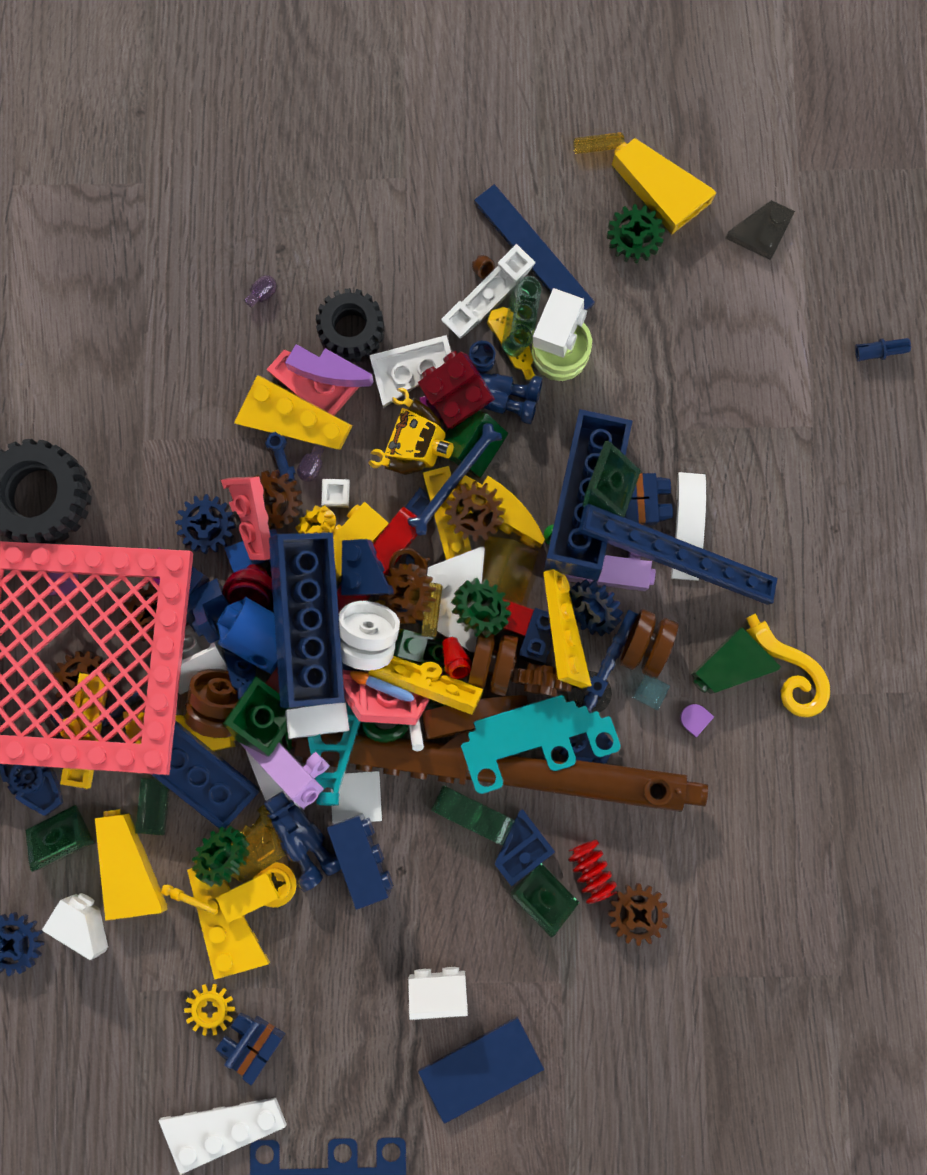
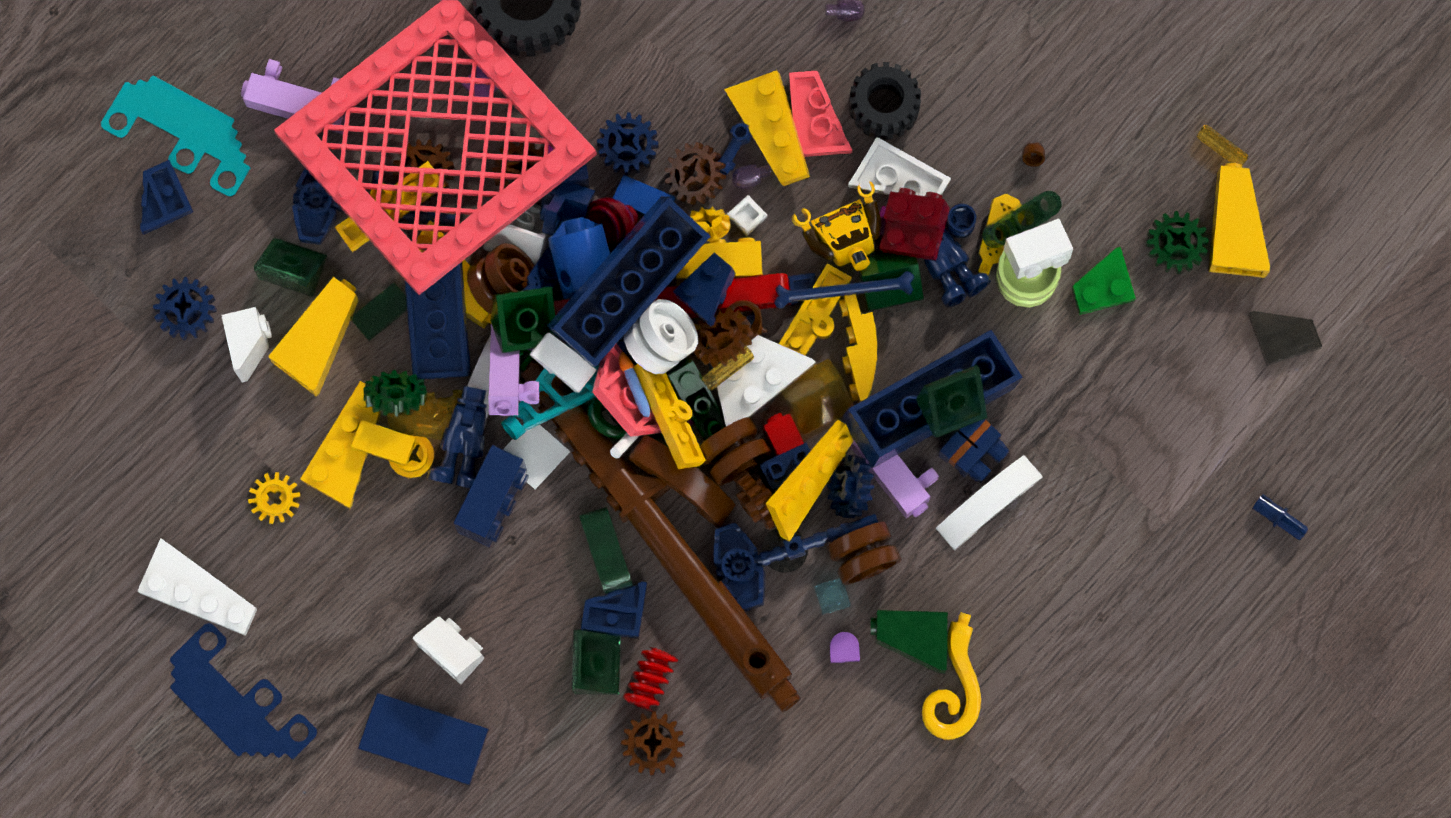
camera: 50 degrees right, 5 degrees down
(179, 895) = (335, 394): yellow piece -> none
(249, 505) = (671, 162): coral wing -> none
(253, 1049) = (265, 552): dark blue hips -> none
(327, 368) = (833, 115): medium lavender slope -> none
(456, 660) = (708, 419): red cone -> none
(479, 522) = (839, 318): reddish brown gear -> none
(481, 607) = (765, 400): dark green gear -> none
(489, 292) = (1016, 179): white slope -> none
(517, 231) = (1085, 178): dark blue tile -> none
(529, 727) = (715, 525): teal piece -> none
(616, 308) = (1104, 285): none -> green wing
(677, 554) = (953, 509): dark blue tile -> none

